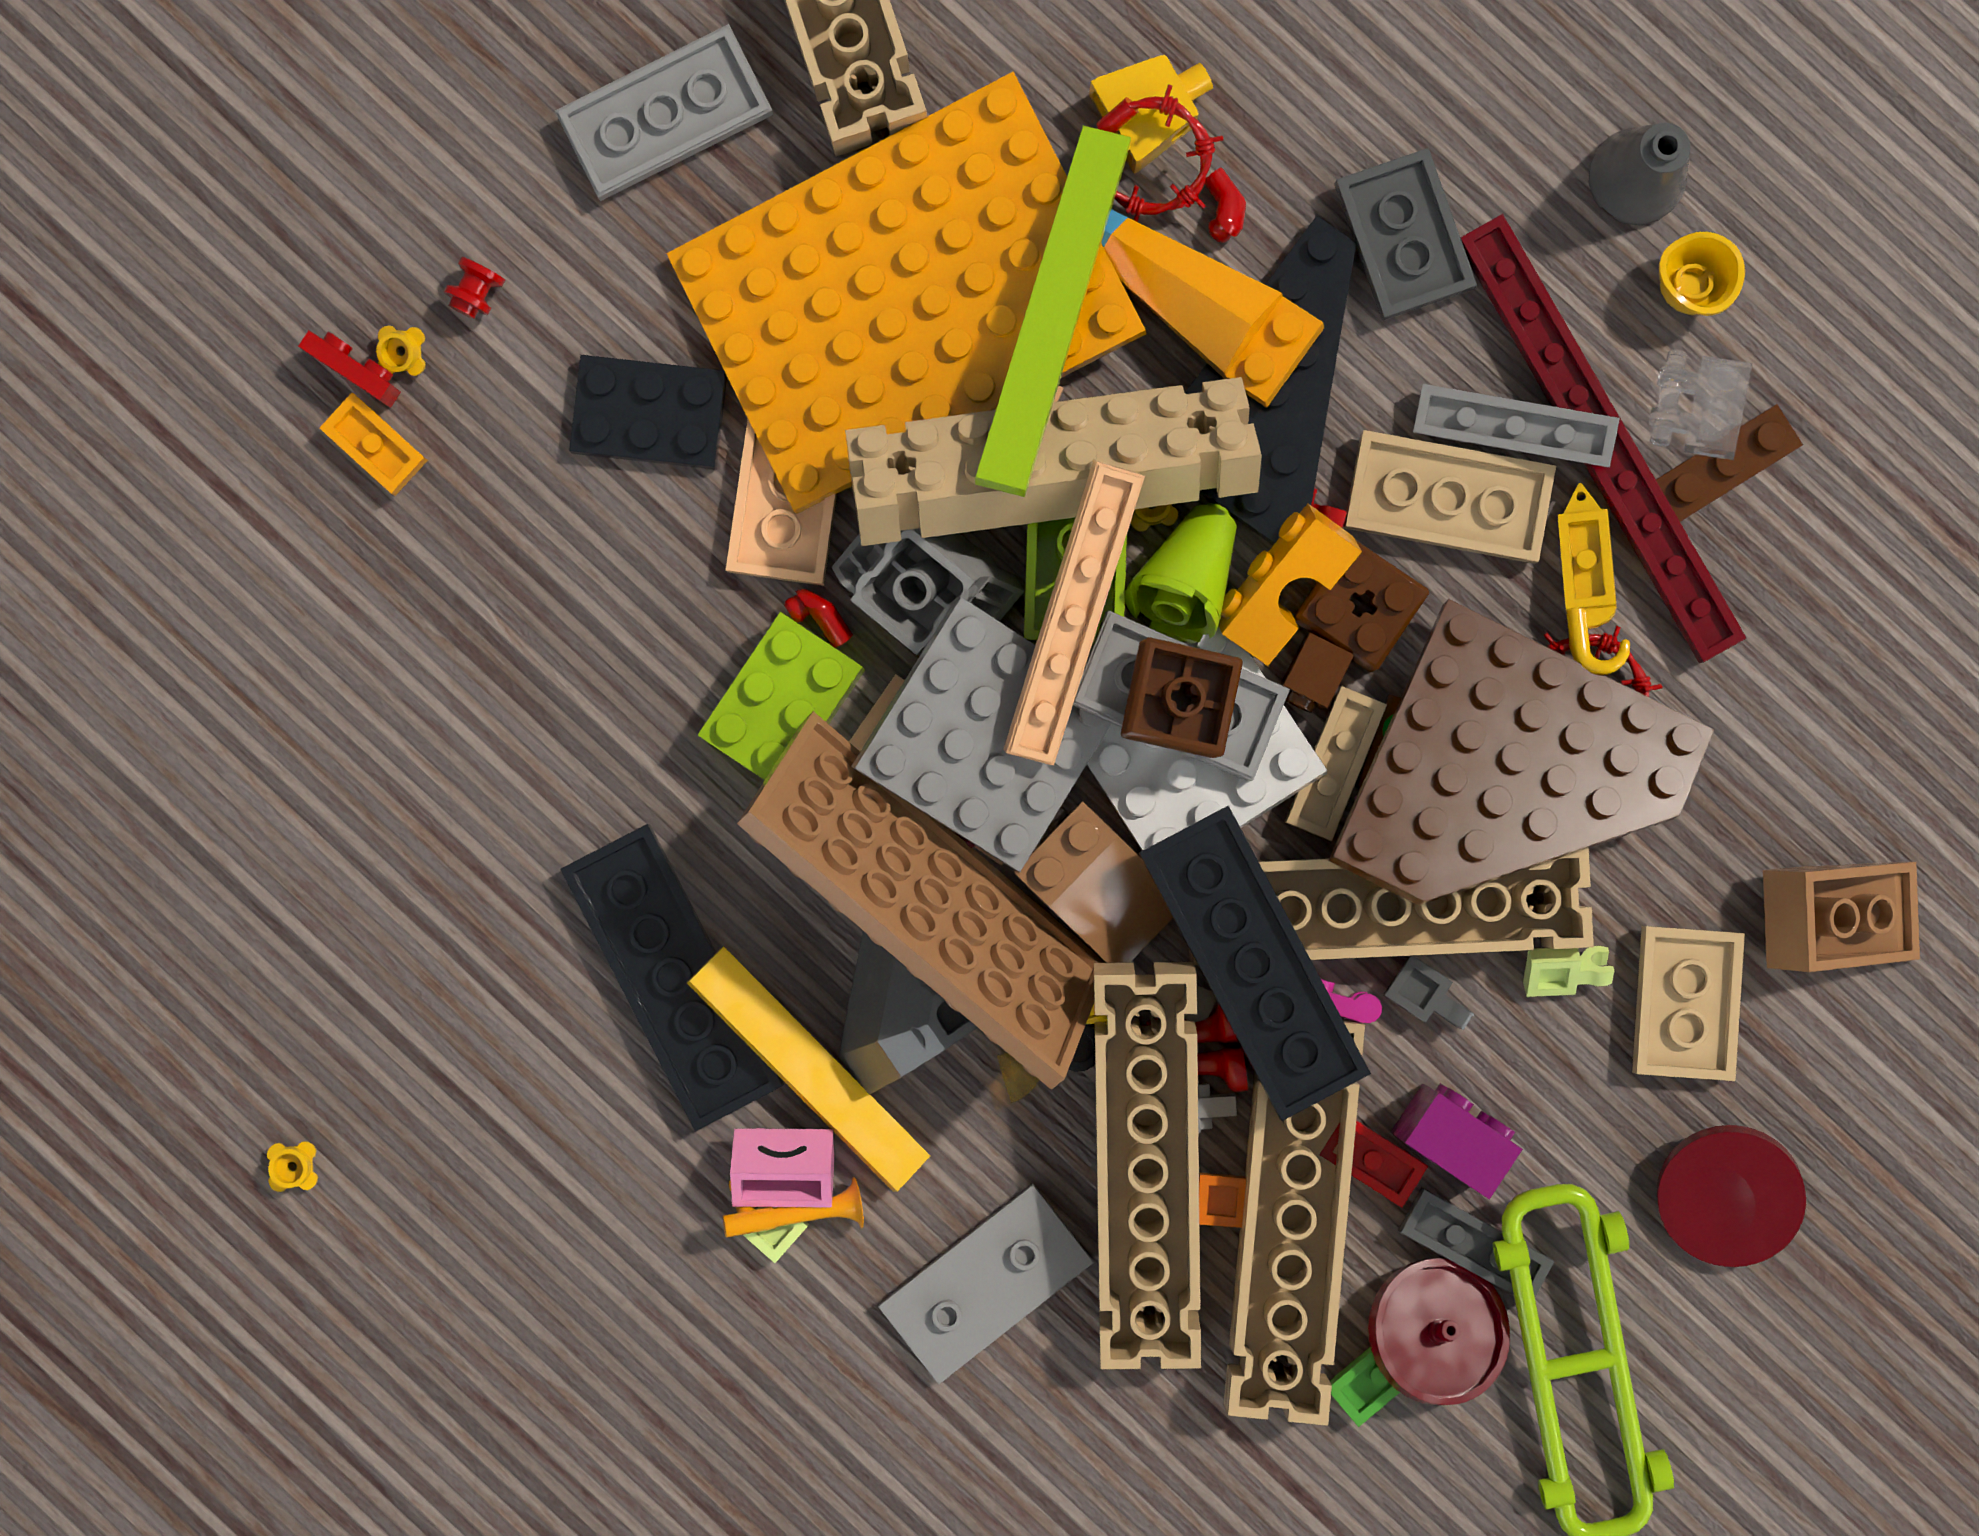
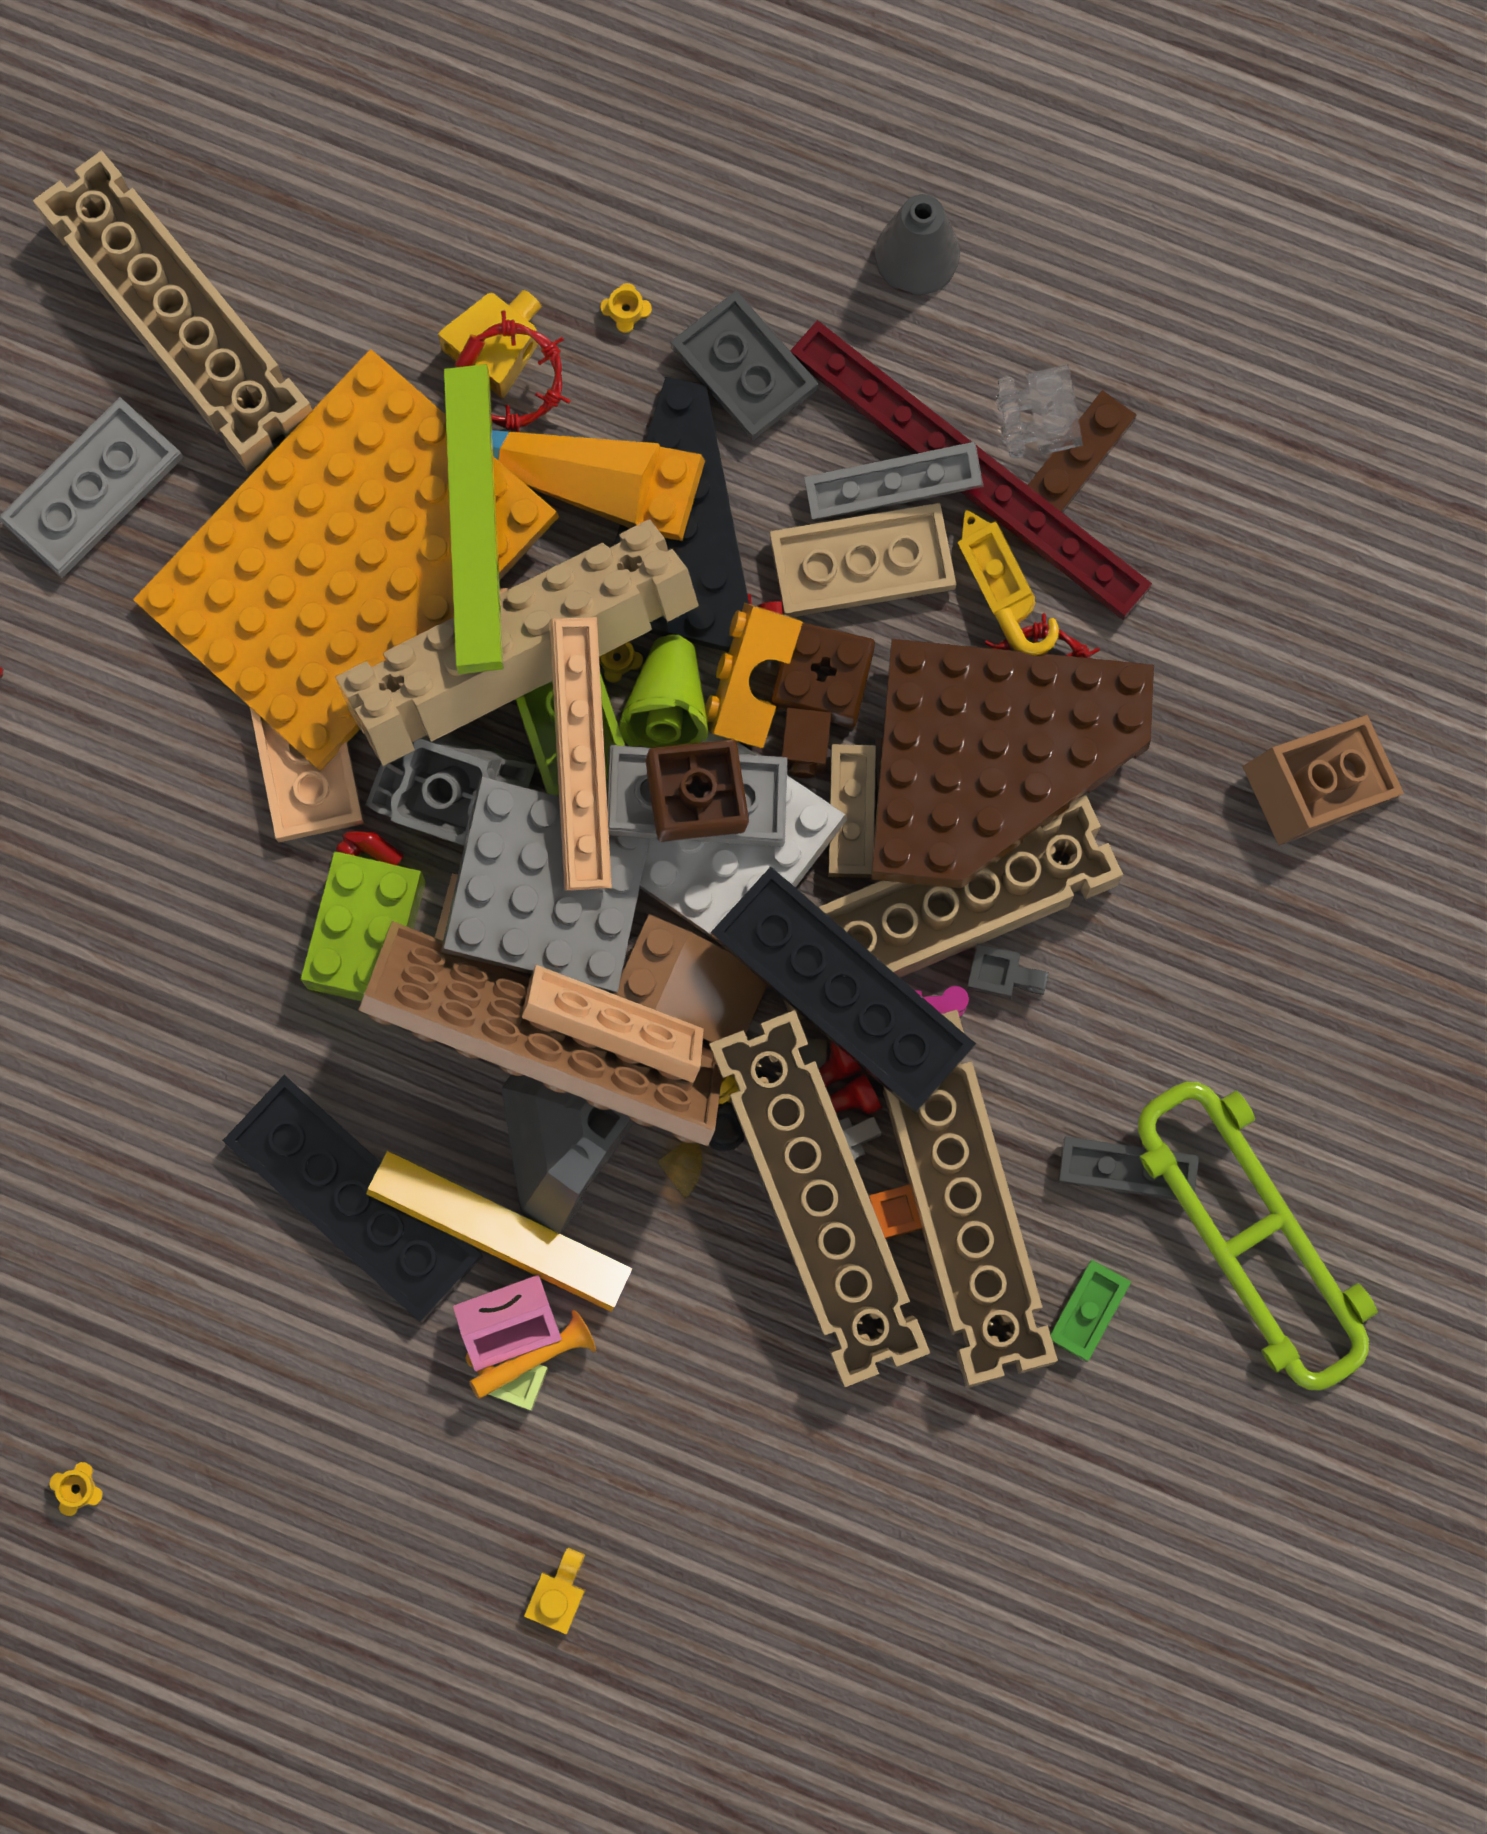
camera: 25 degrees left, 10 degrees down
(648, 412) = (163, 735): black plate -> none
(735, 1455) = (556, 1597): none -> yellow plate
(985, 1283) = (721, 1362): light grey plate -> none
(1002, 913) = (613, 1024): none -> light nougat plate
(1230, 208) = (592, 396): red arm -> none
(1308, 108) = (626, 295): none -> yellow plate
(1380, 1164) = (1019, 1131): red plate -> none
(1439, 1332) = (1124, 1252): piece -> none
(1464, 1145) = (1074, 1079): magenta brick -> none
(1561, 970) = (1107, 909): yellowish green plate -> none
(1688, 1003) = (1225, 899): tan plate -> none
(1701, 274) = (997, 308): yellow helmet -> none
(1731, 1196) = (1325, 1044): dark red piece -> none

